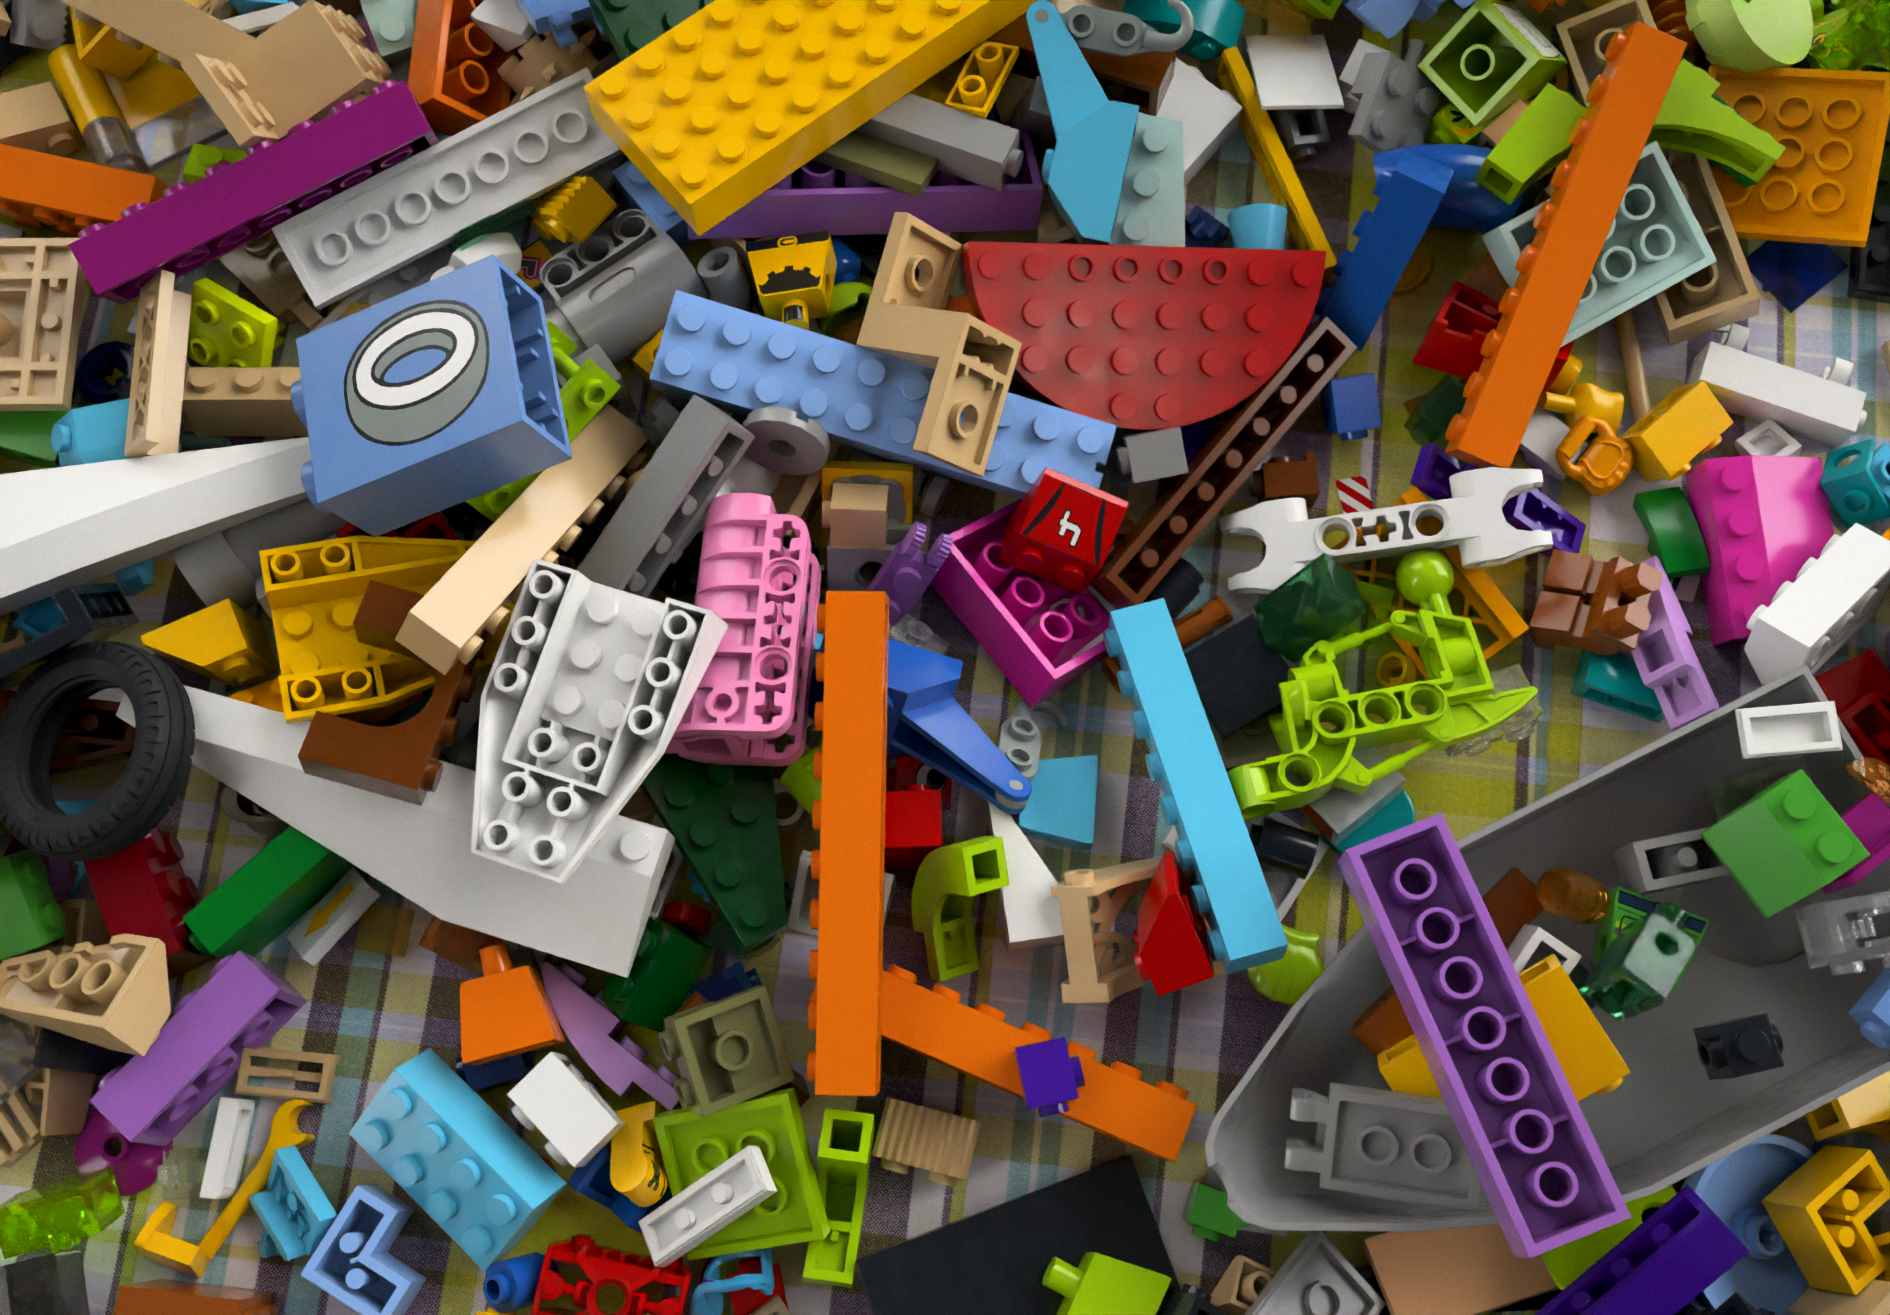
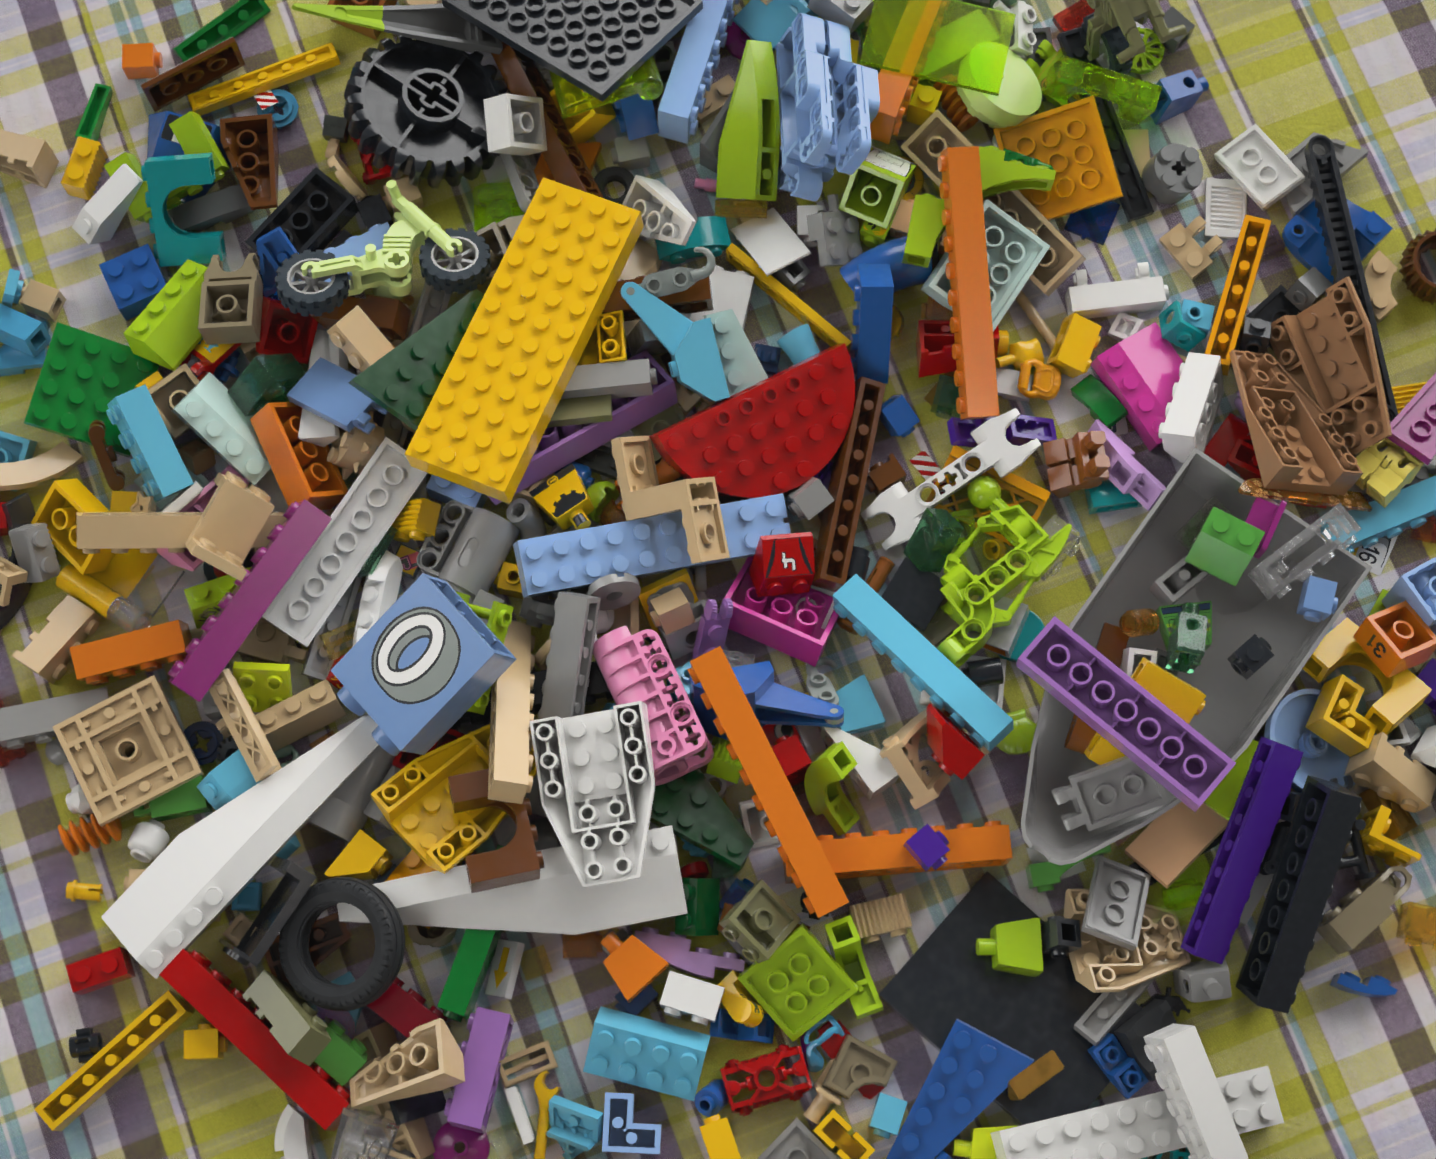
camera: 30 degrees left, 0 degrees up
(707, 1206) = (790, 1006): white tile -> none
(1788, 729) = (1201, 486): white tile -> none

